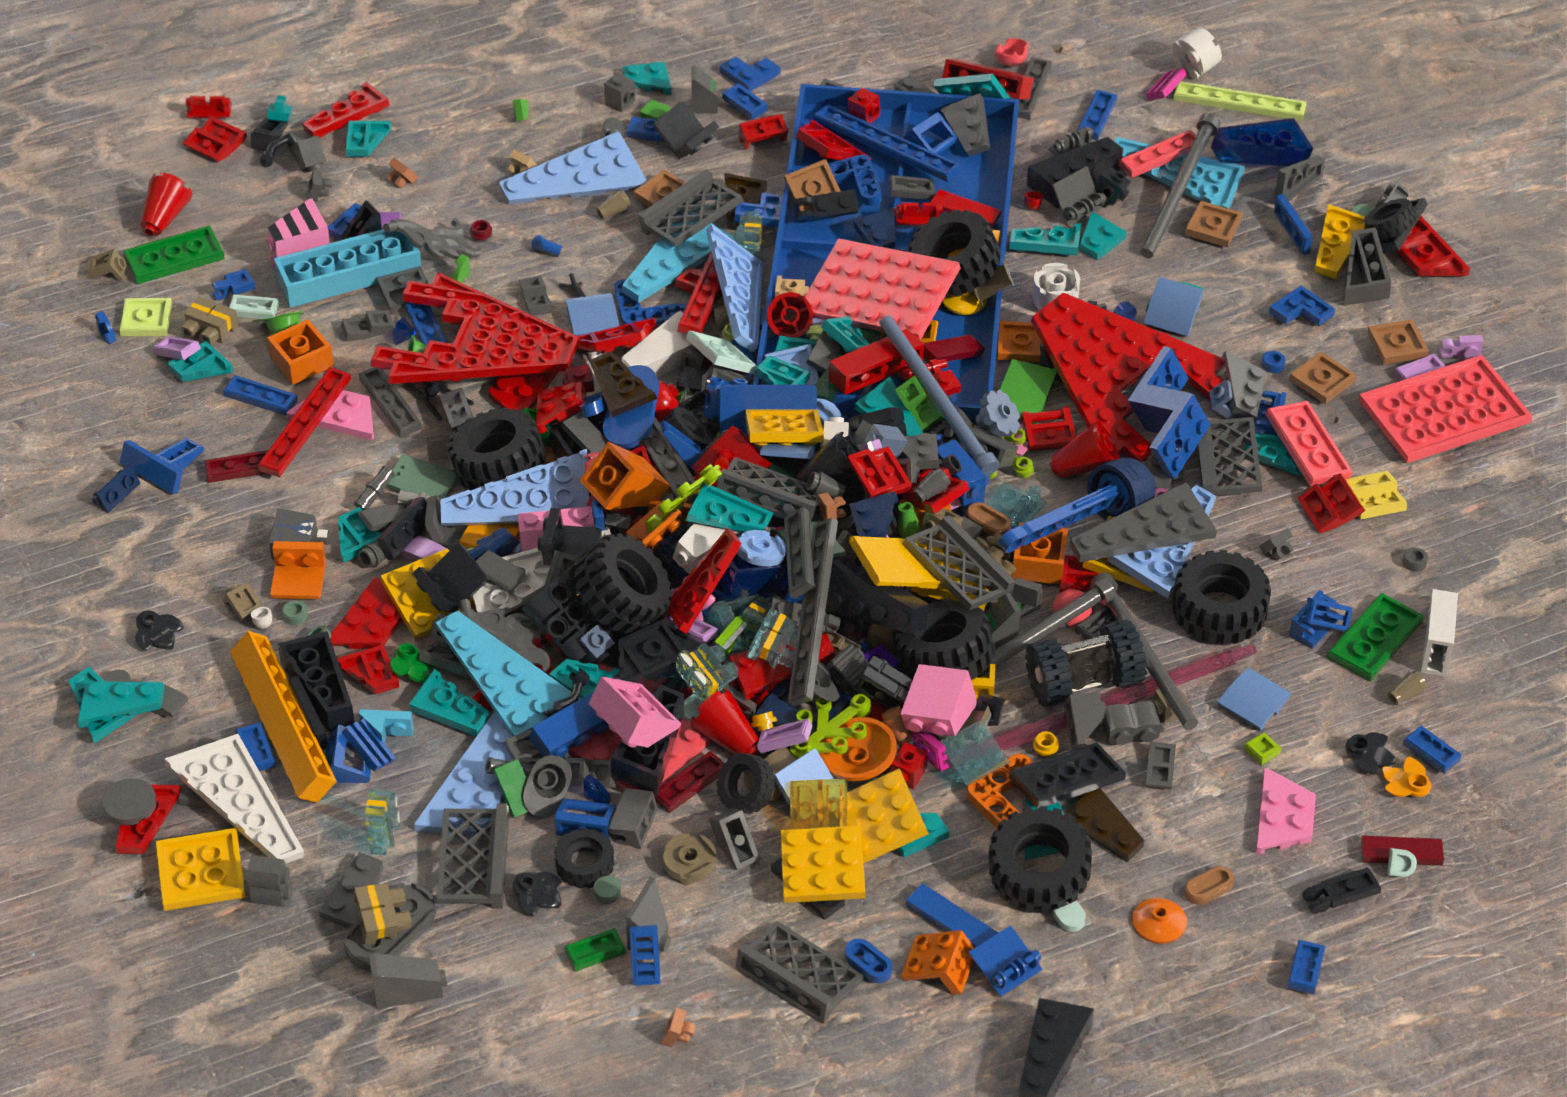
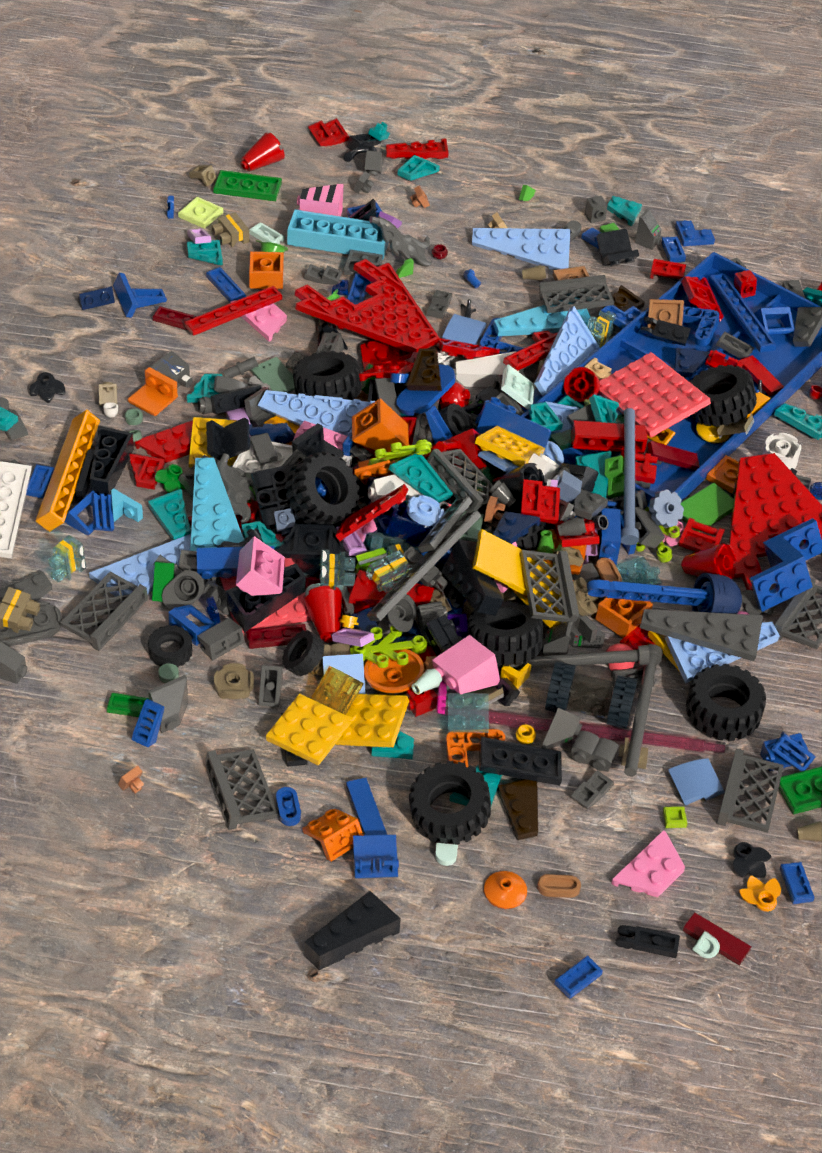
camera: 30 degrees right, 0 degrees up
(217, 107) = (344, 114): red hinge -> none
(235, 282) = (267, 216): blue plate -> none
(390, 401) = (297, 328): dark grey tile -> none
(540, 892) = (126, 653): black plate -> none
(911, 739) = (430, 679): none -> light aqua cone
(1278, 542) = (800, 687): dark grey tile -> none
(1295, 682) = (732, 792): none -> dark grey fence

